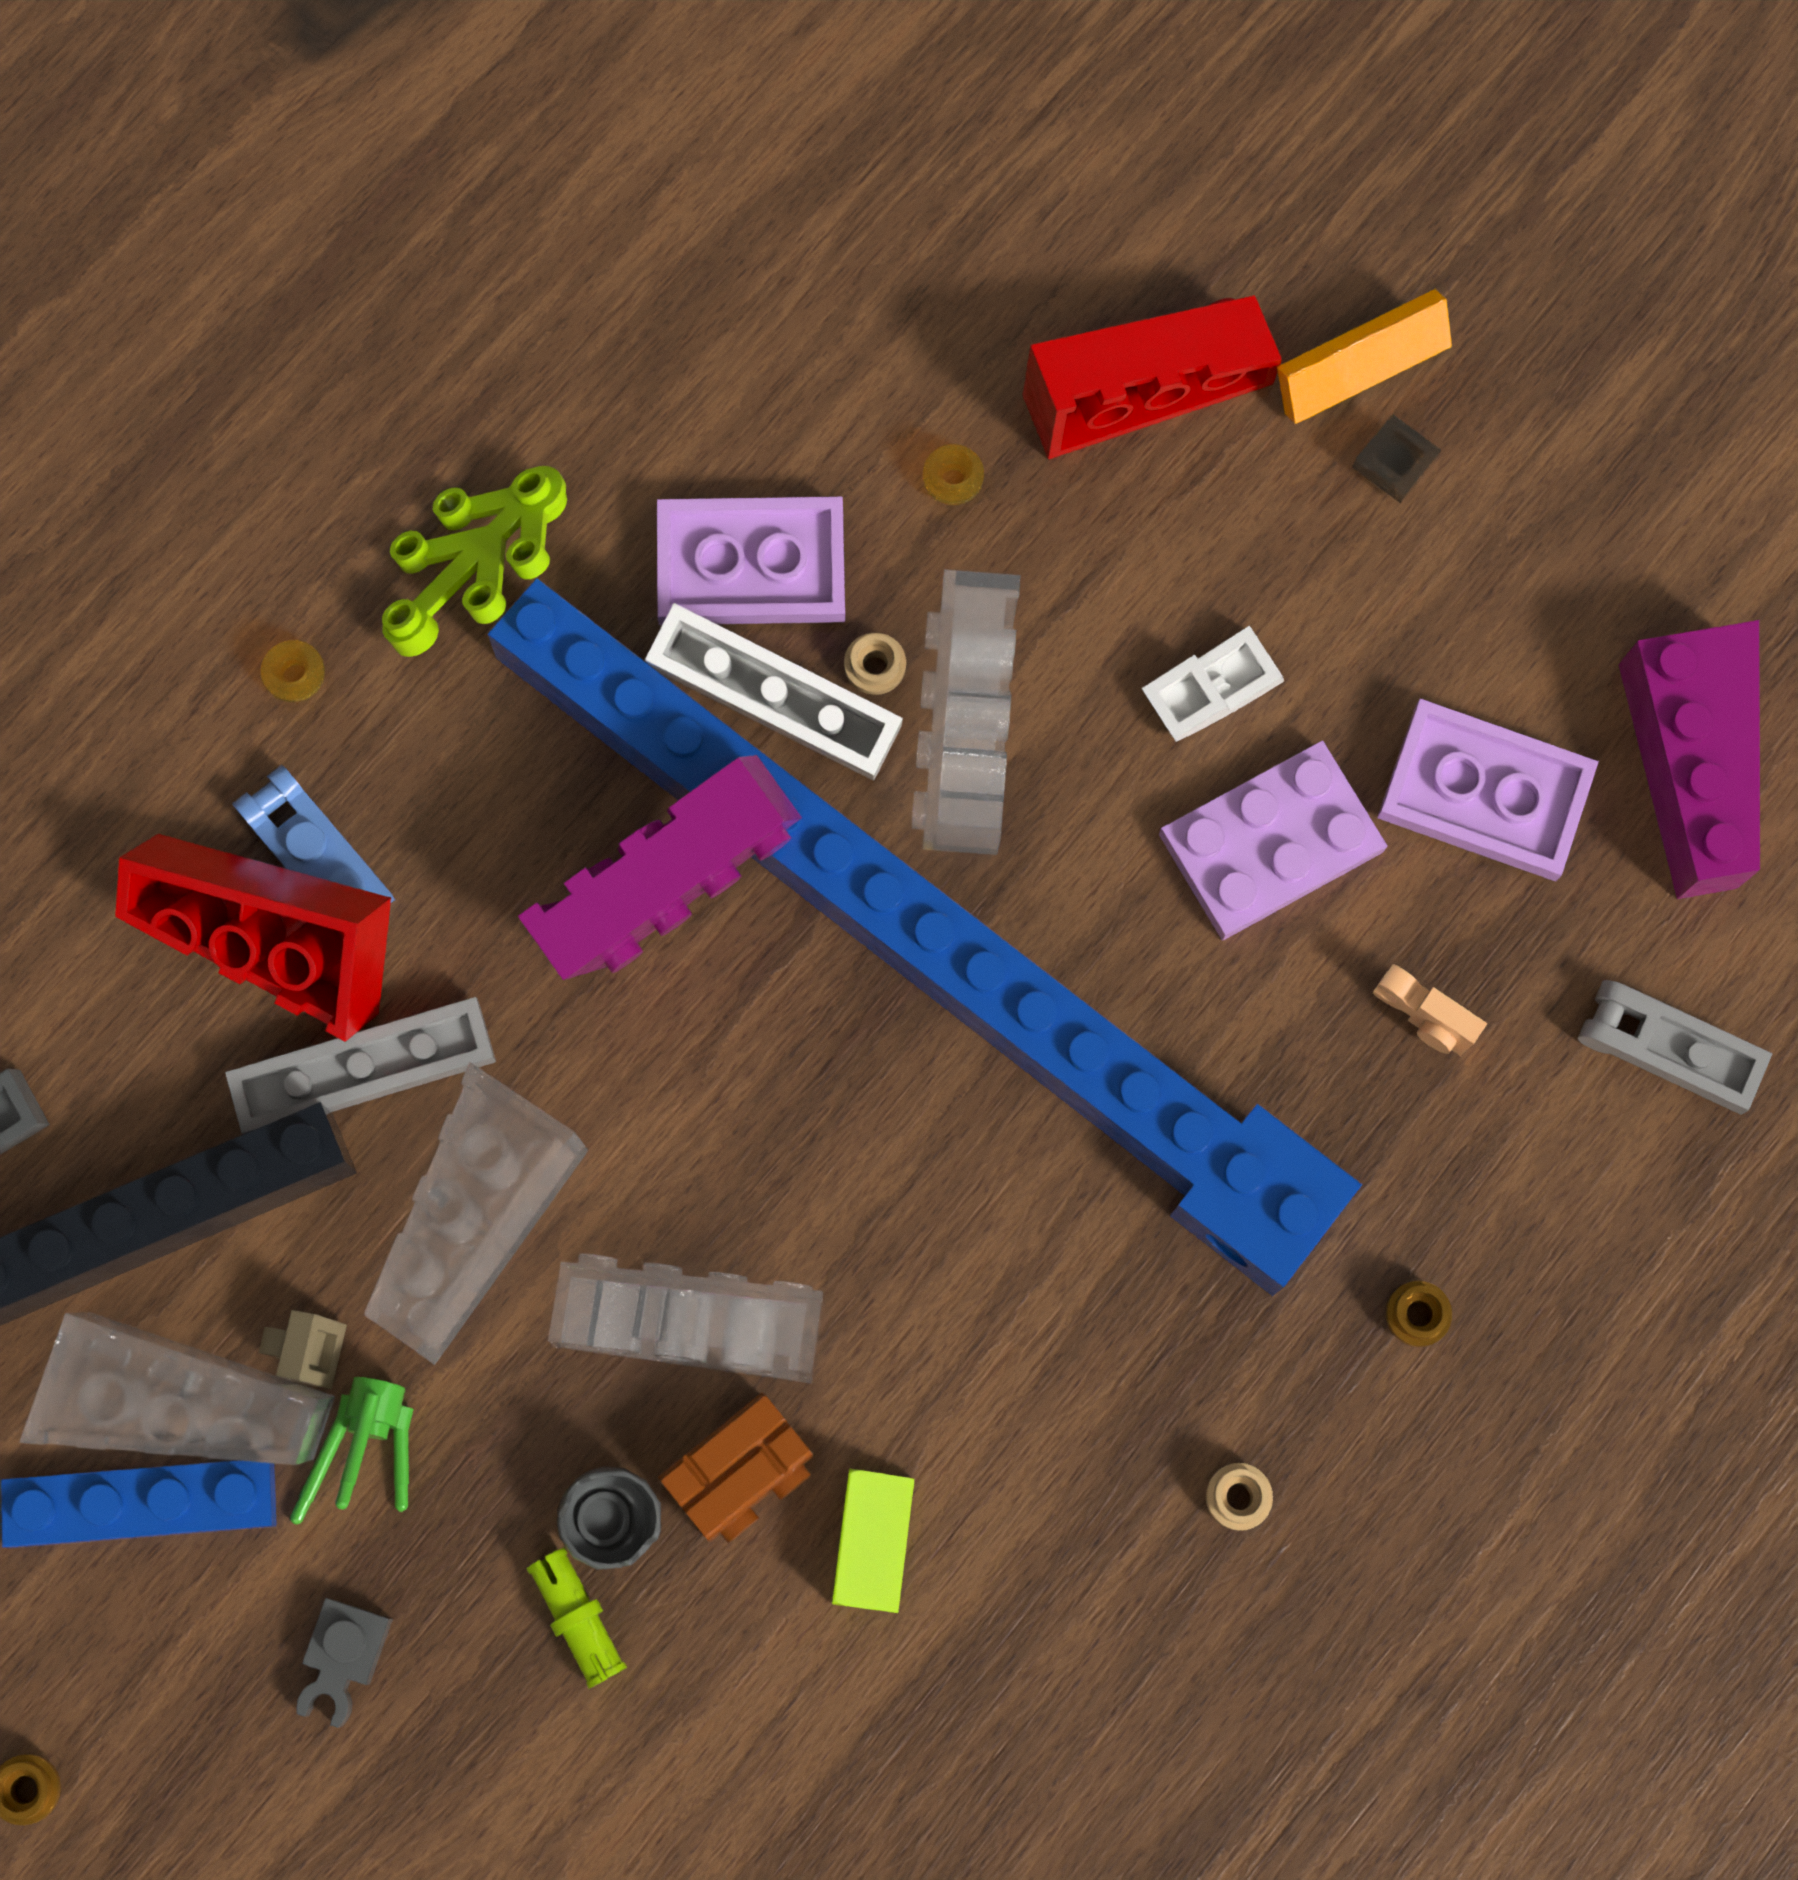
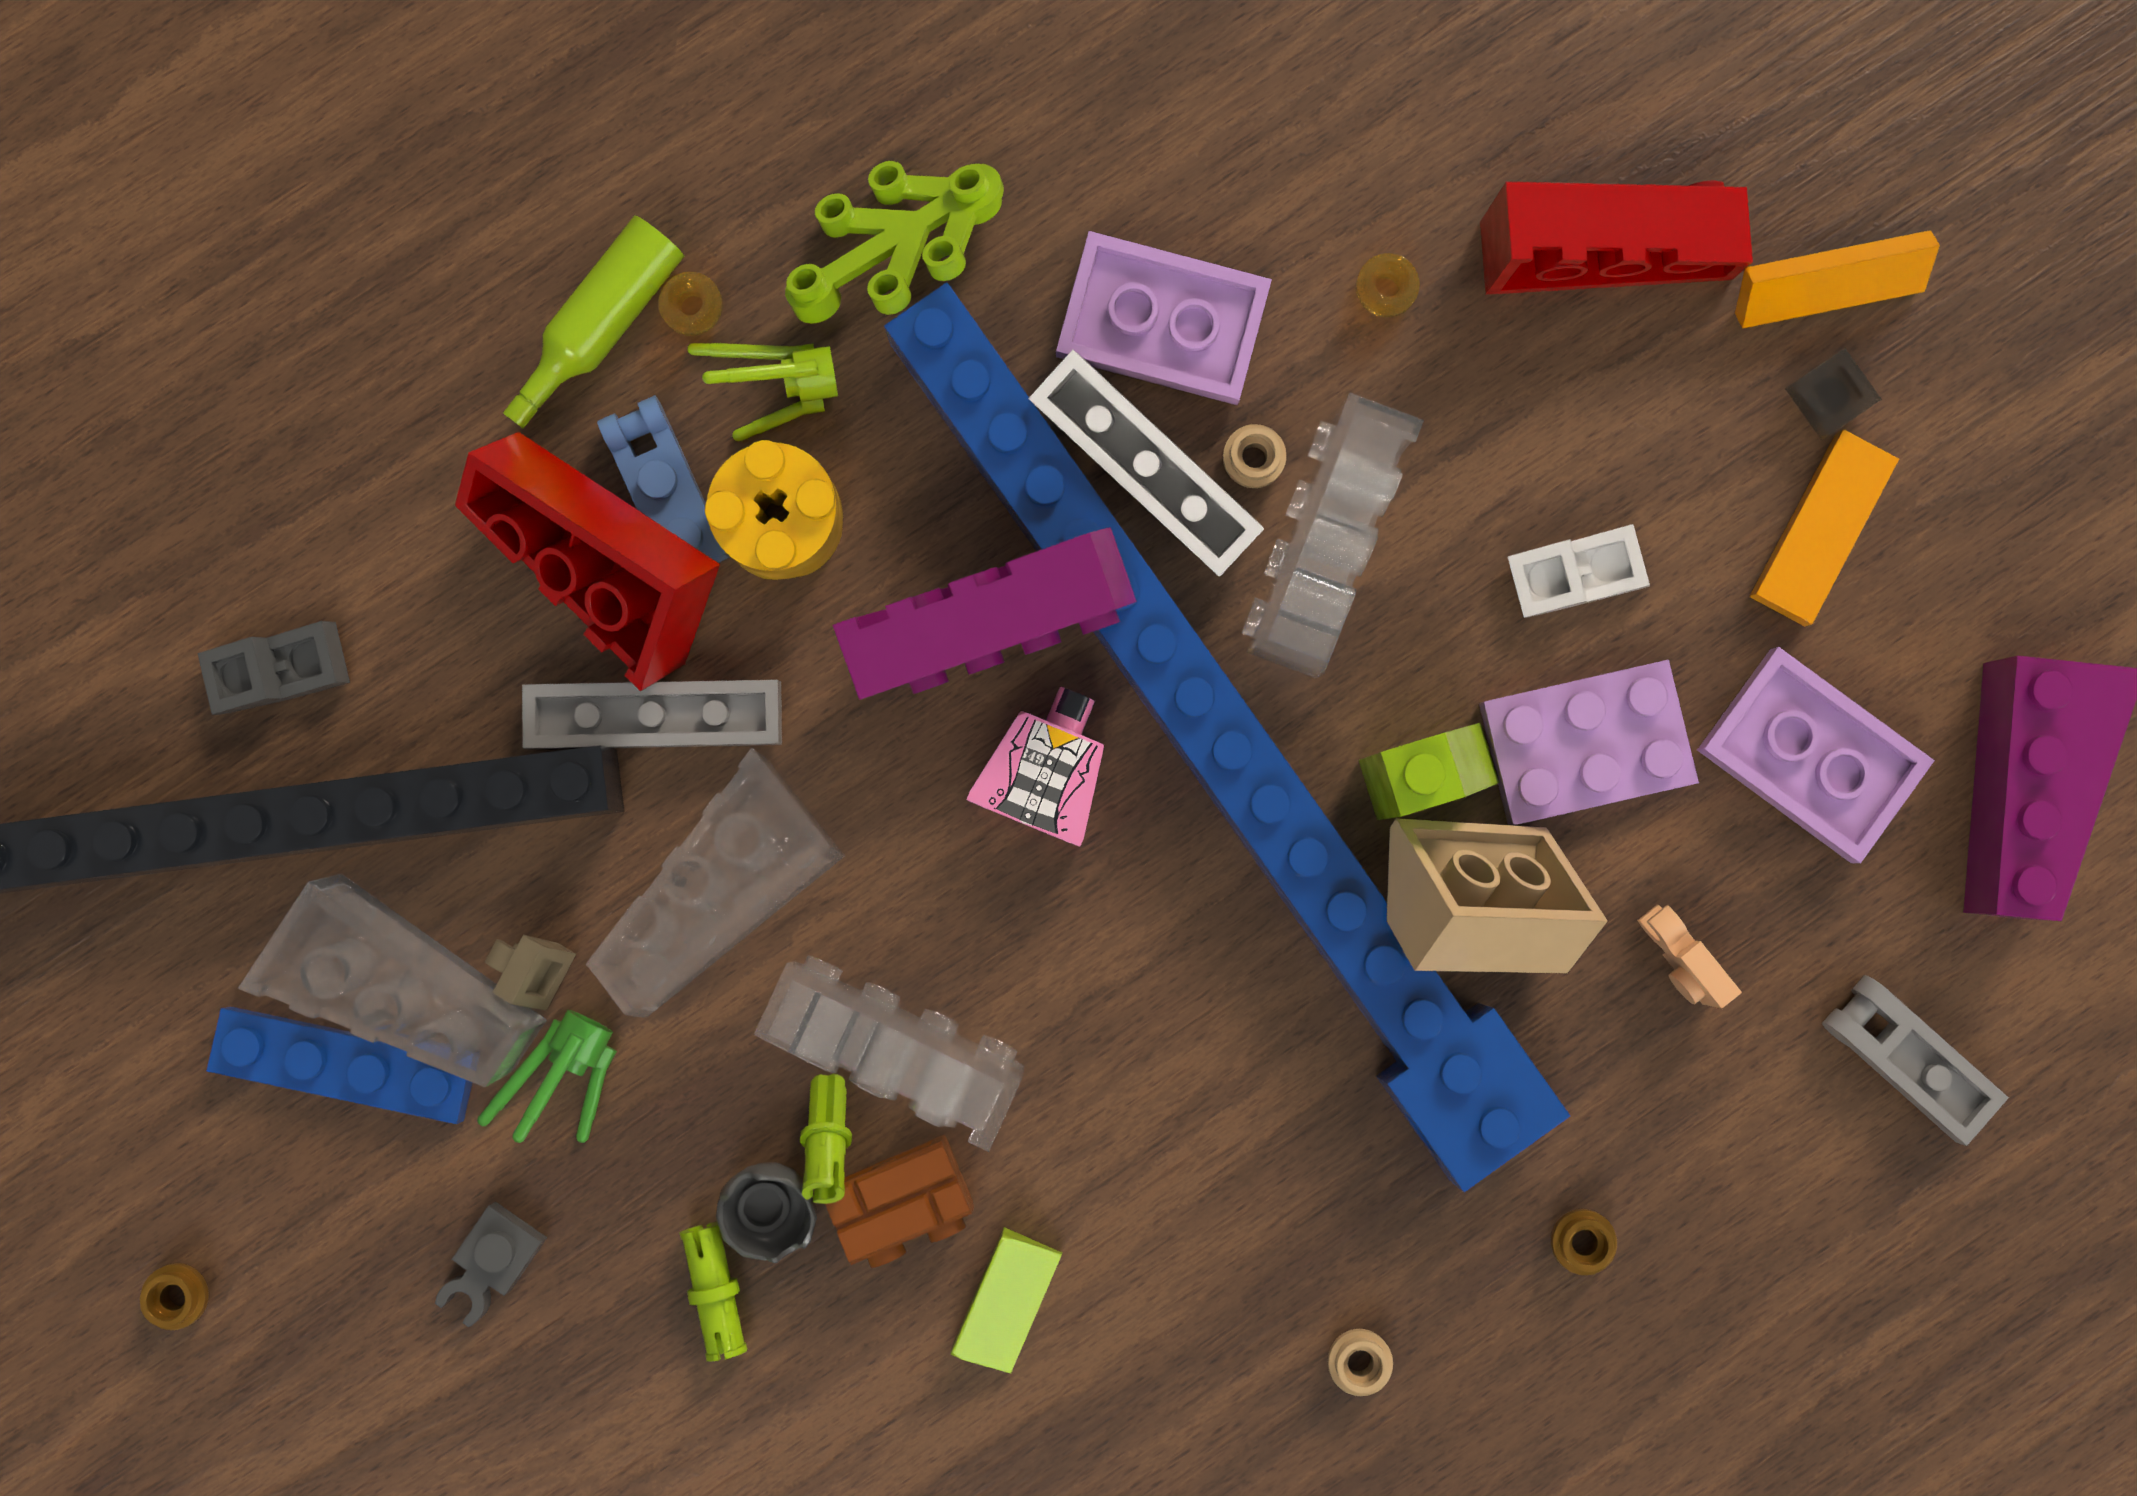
camera: 20 degrees right, 10 degrees up
(206, 702) = (598, 312): none -> lime piece
(416, 806) = (776, 475): none -> yellow brick
(422, 702) = (805, 371): none -> lime plant
(648, 1427) = (825, 1140): none -> lime axle
(760, 1012) = (1045, 770): none -> torso
(1125, 903) = (1428, 772): none -> lime slope
(1218, 1004) = (1486, 898): none -> tan slope
(1429, 582) = (1824, 528): none -> light orange tile

